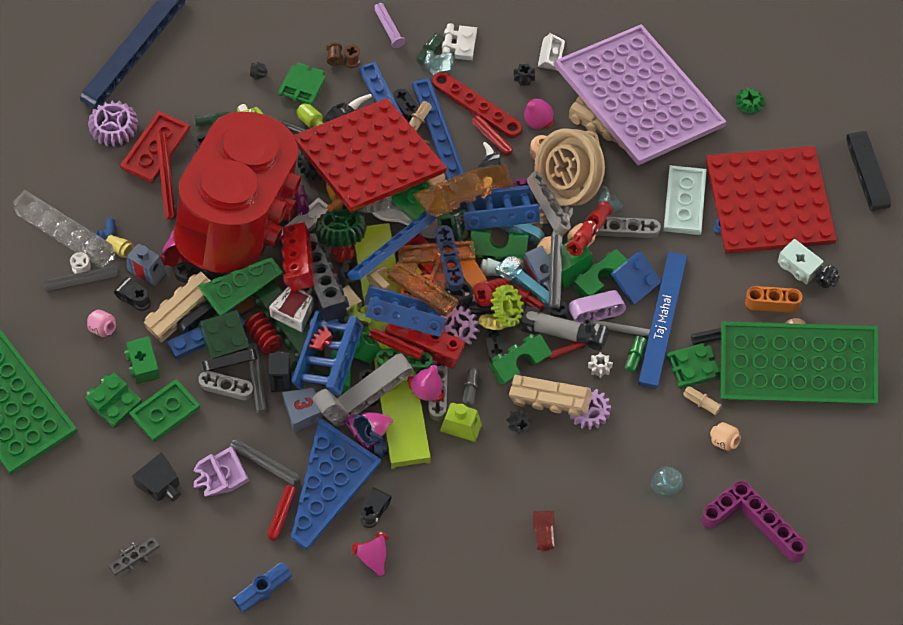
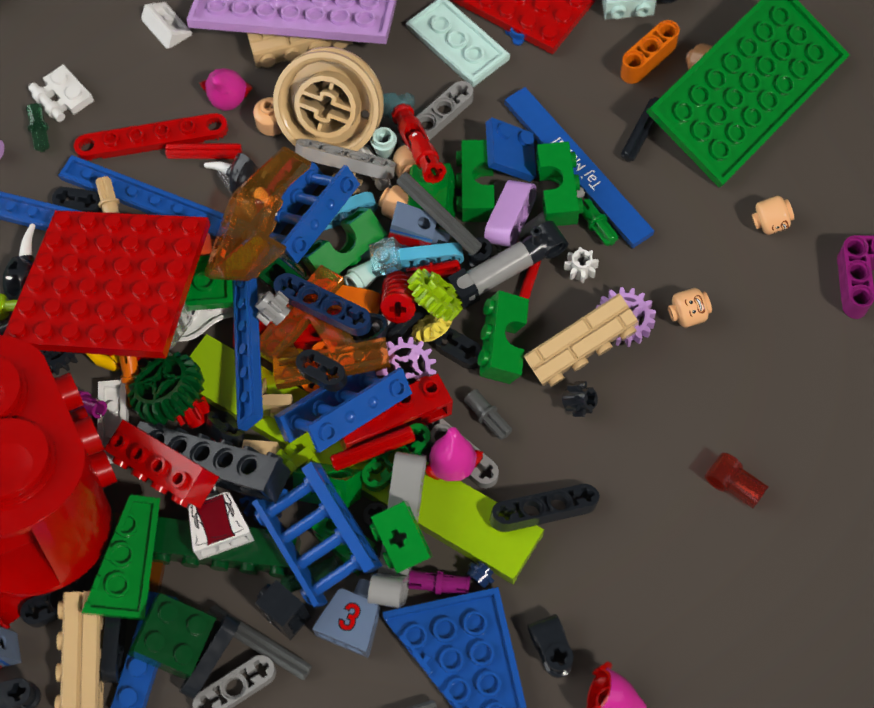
camera: 45 degrees left, 5 degrees up
(263, 333) = (210, 587): red piece -> none
(322, 339) = (296, 526): piece -> none
(366, 382) = (415, 546): none -> green brick
(371, 426) = (455, 563): hat -> none
(408, 286) = (324, 365): none -> black beam
(424, 237) = (272, 308): none -> light grey gear
(439, 63) = (66, 130): clear light blue bracket -> none
(440, 451) = (542, 502): none -> black beam
(462, 422) = (529, 460): lime torso -> none
(524, 74) = (166, 65): black gear -> none
(577, 213) = (384, 142): none -> light aqua cone
(624, 435) = (690, 307): none -> light nougat head
(626, 327) = (556, 164): none -> green arch
(667, 481) = (776, 311): clear light blue hair -> none
(695, 364) = (658, 179): green plate -> none
(702, 400) = (708, 203): tan axle -> none

